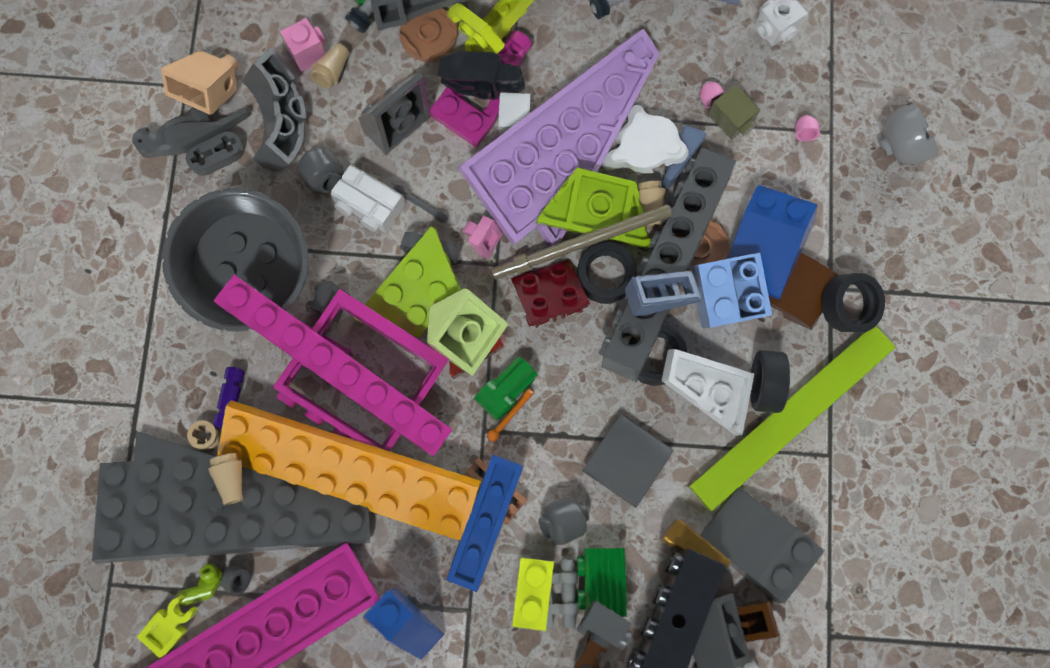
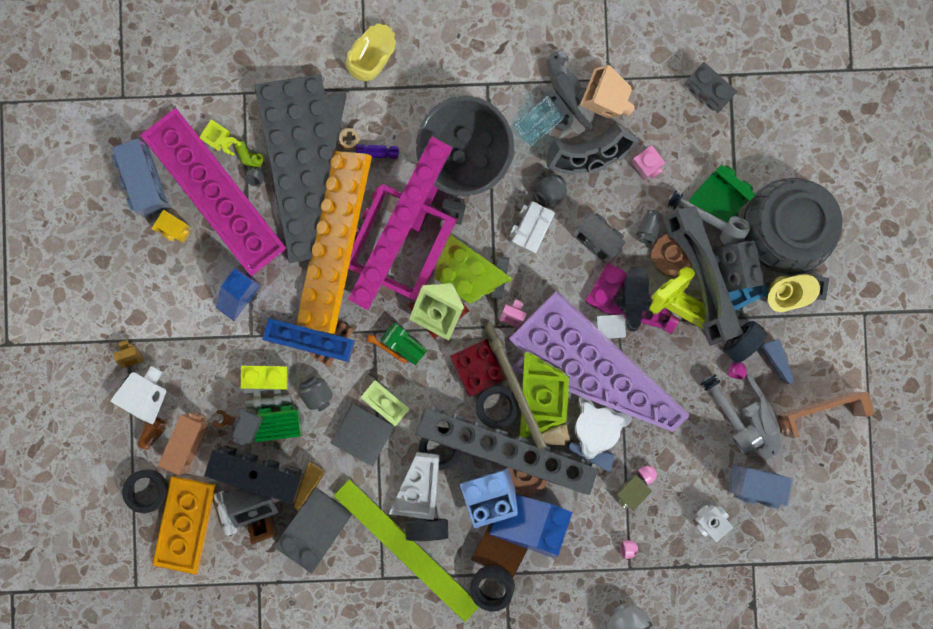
camera: 90 degrees right, 10 degrees up
(84, 389) = (370, 52): none -> light yellow hair
(221, 167) = (539, 120): none -> clear light blue slope
(227, 476) = (318, 162): tan cone -> none
(329, 67) = (634, 184): tan cone -> none
(390, 55) = (649, 228): none -> dark grey cone
(437, 214) = (543, 249): dark grey hinge -> none
(586, 423) = (385, 403): none -> yellowish green plate
(642, 298) = (469, 449): sand blue slope -> none

